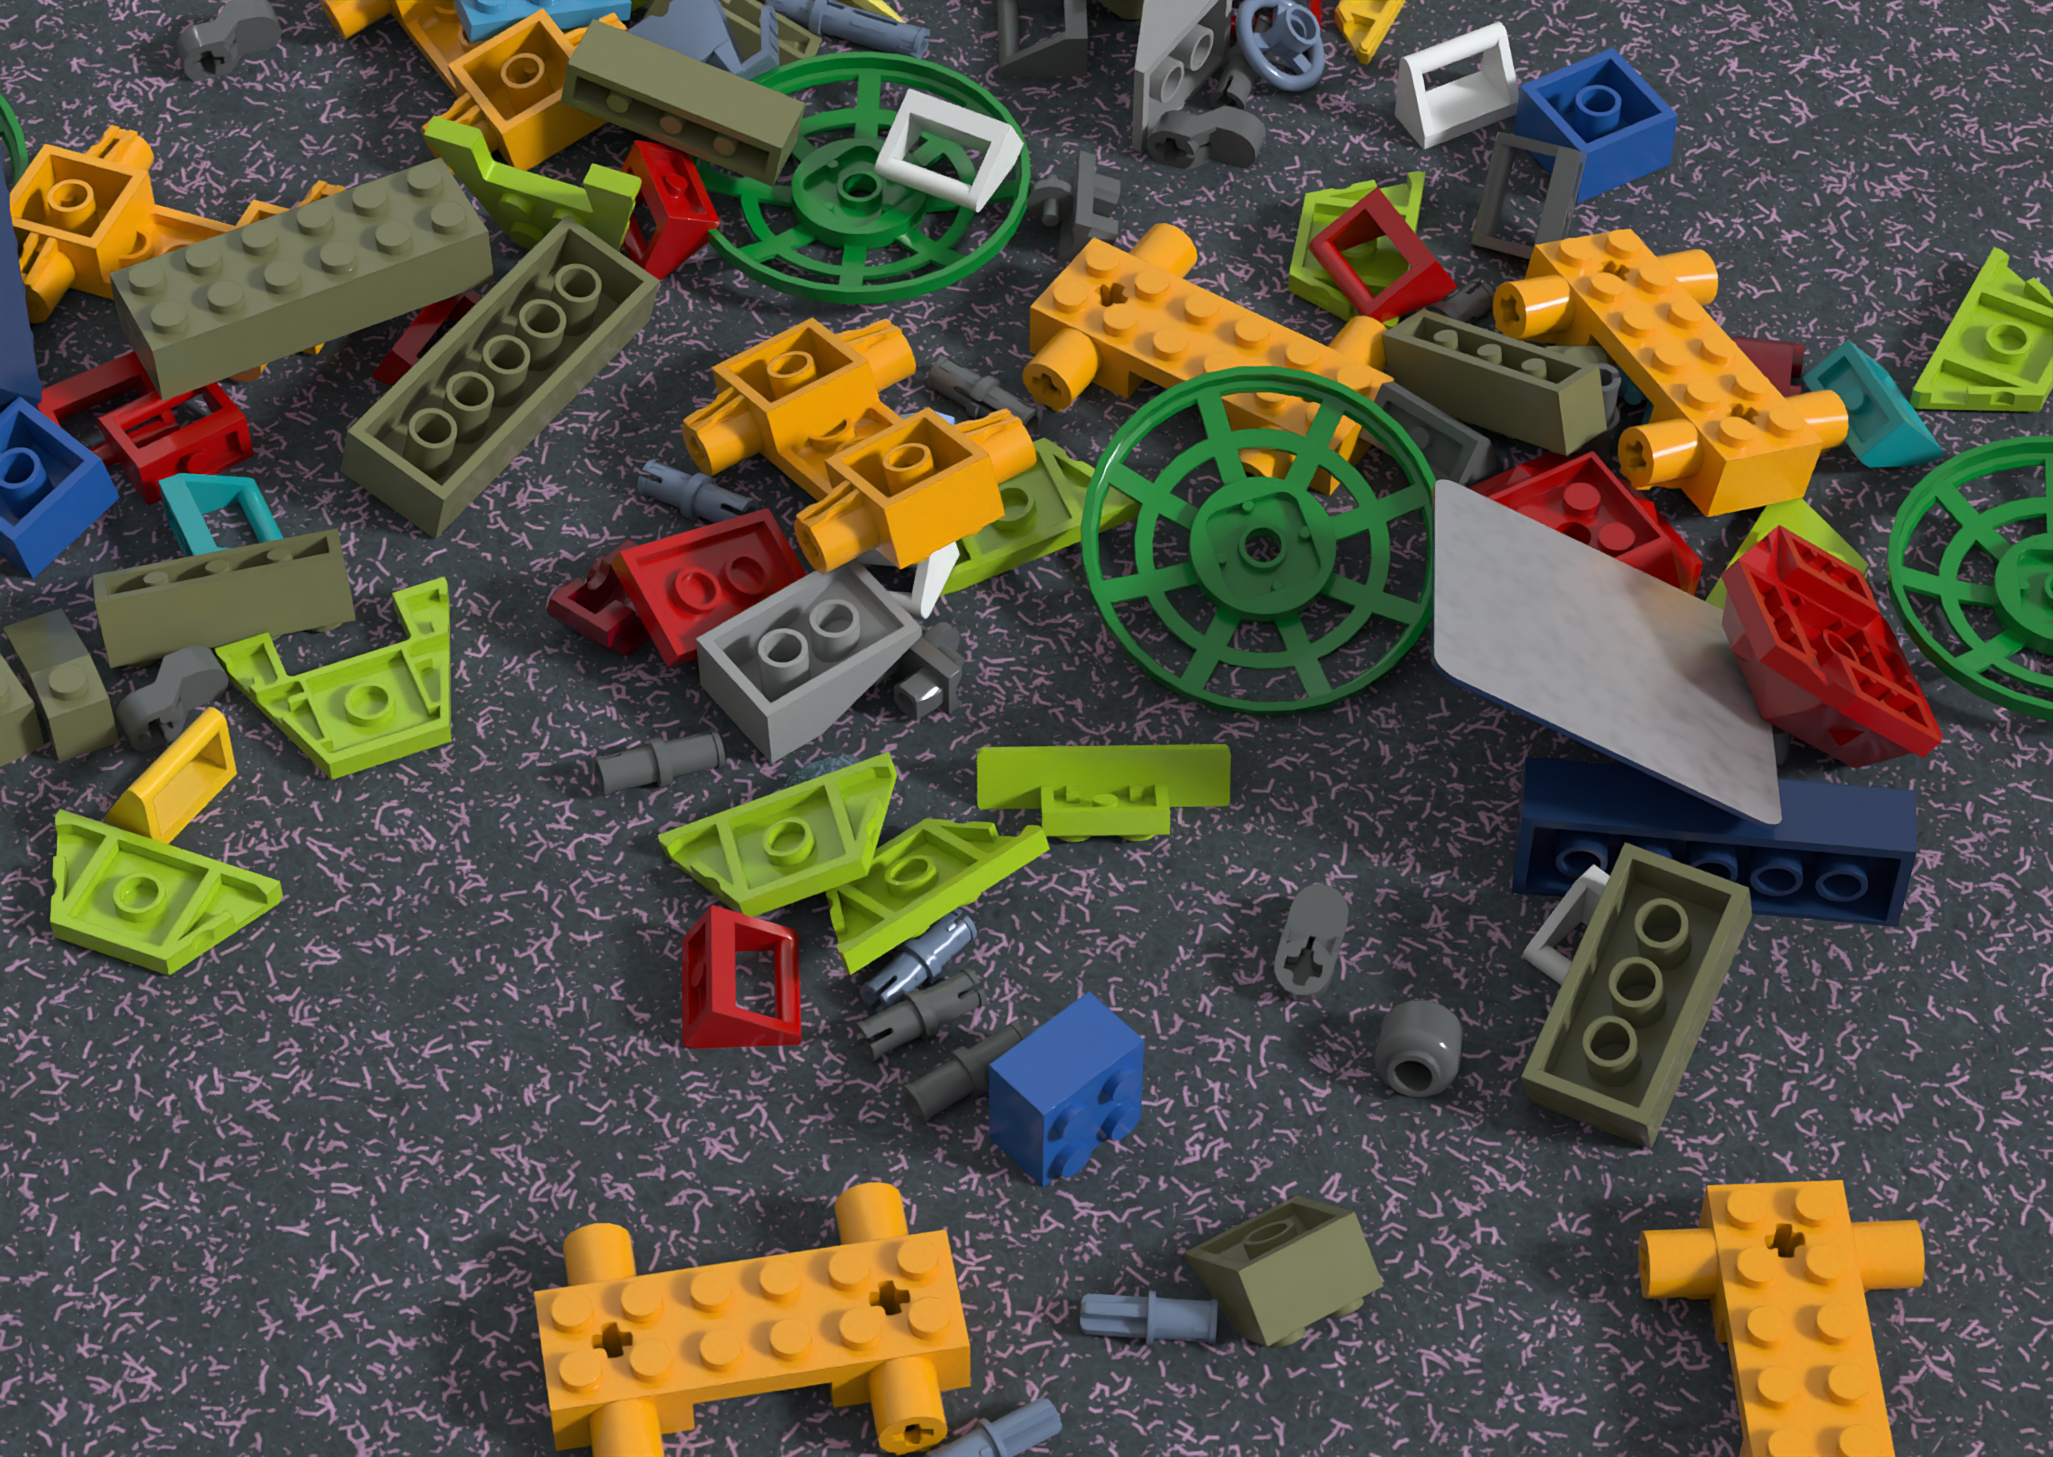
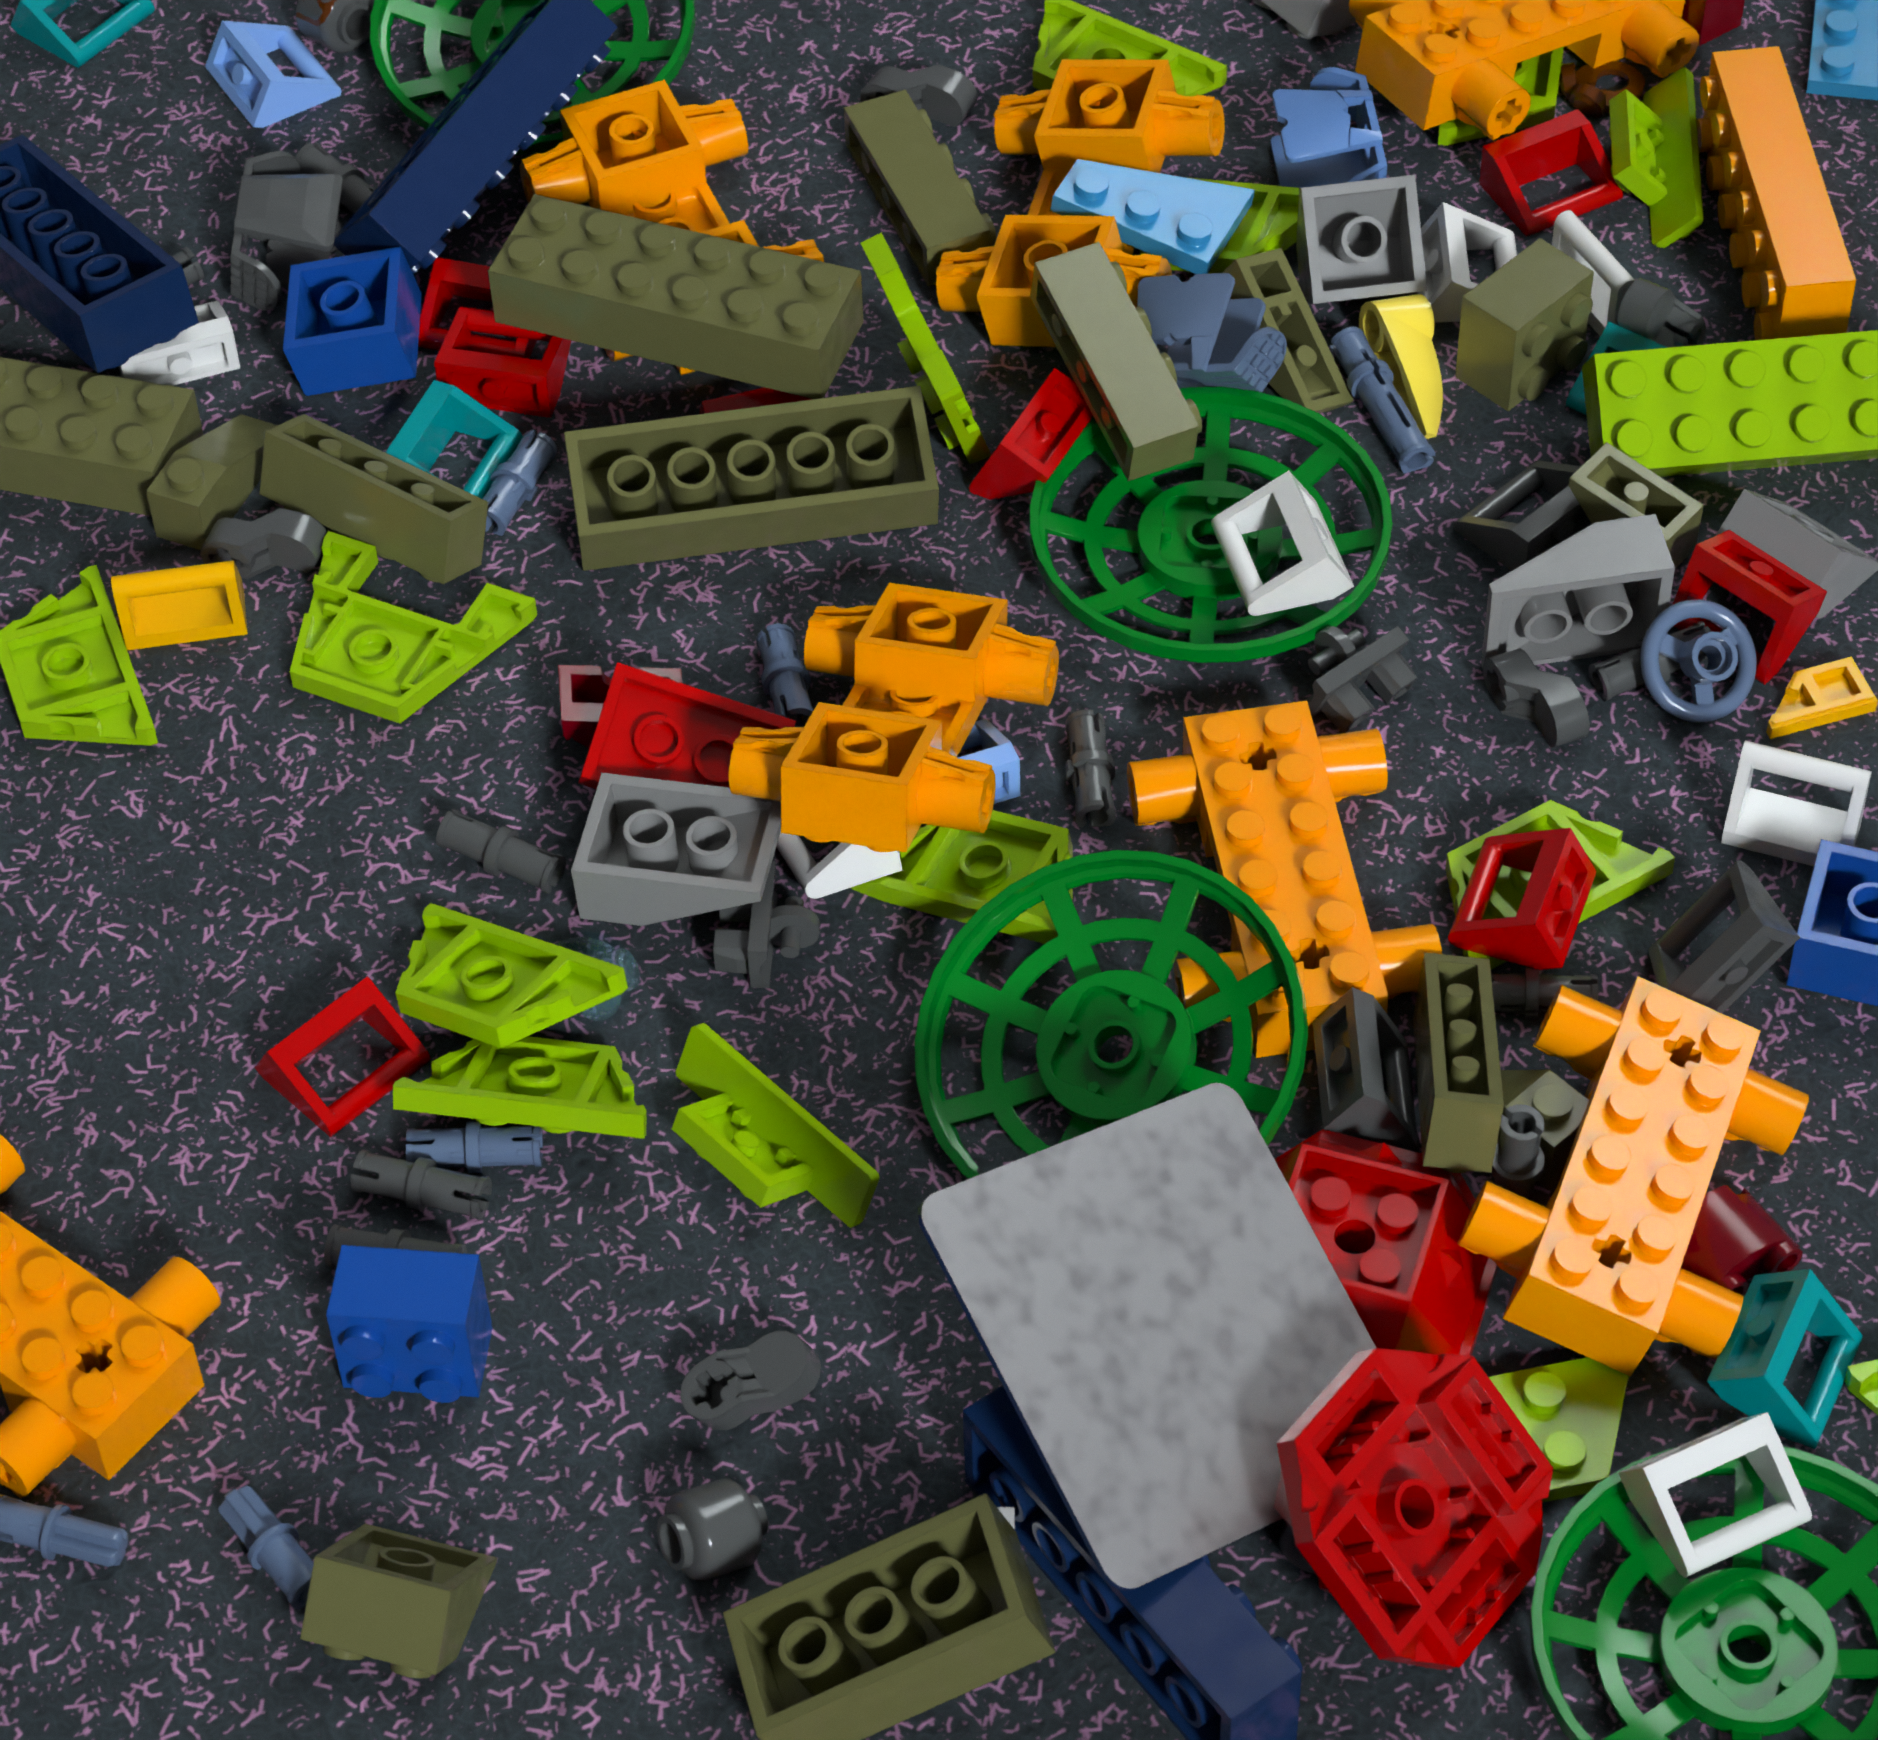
camera: 50 degrees right, 0 degrees up
(297, 510) = (517, 479): none -> sand blue pin
(319, 100) = (915, 180): none -> olive brick
(1935, 500) = (1748, 1436): none -> white tile

